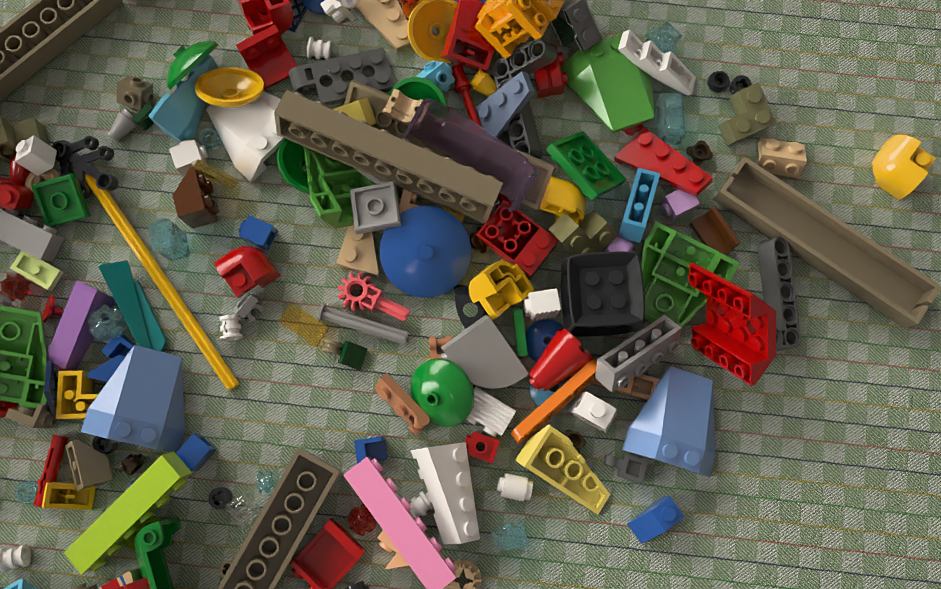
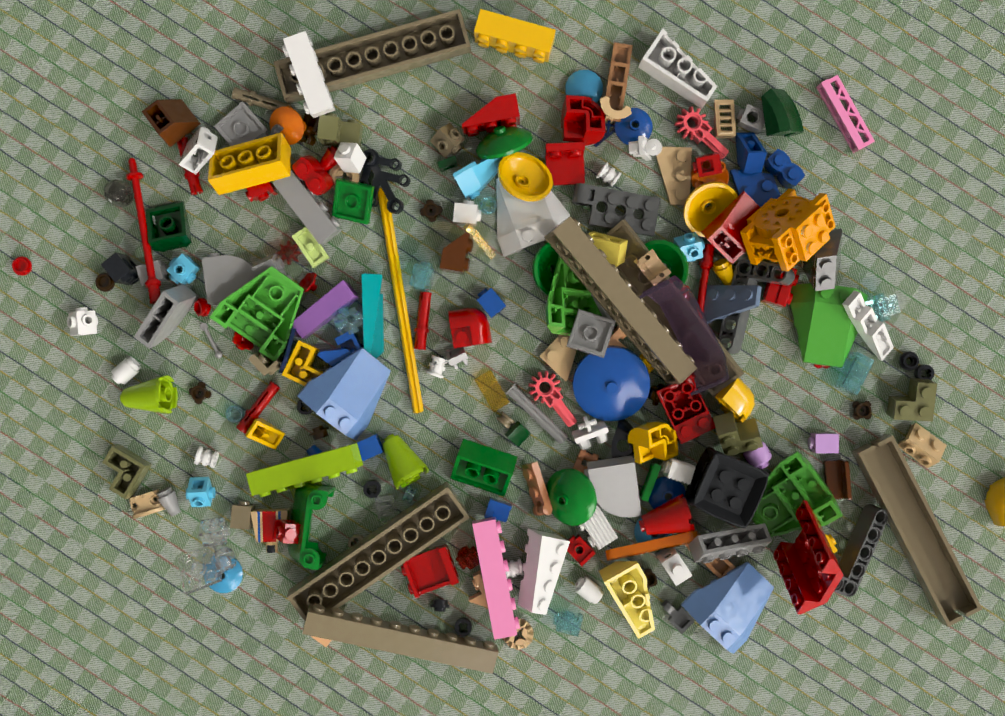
camera: 25 degrees right, 10 degrees up
(88, 465) = (288, 419): dark tan slope -> none
(122, 125) = (426, 160): light grey cone -> none
(145, 171) = (431, 205): none -> dark brown plate
(165, 40) = (498, 112): none -> red slope
(192, 284) = (422, 321): none -> red pin
(240, 450) = (402, 462): none -> lime cone
(332, 411) = (483, 467): none -> green slope
(437, 308) = (589, 430): none -> white hips
(586, 165) = (768, 380): green plate -> none
(639, 205) = (791, 431): dark azure brick -> none
(655, 155) = (826, 401): red wing -> none
(656, 519) = (678, 663): blue slope -> none

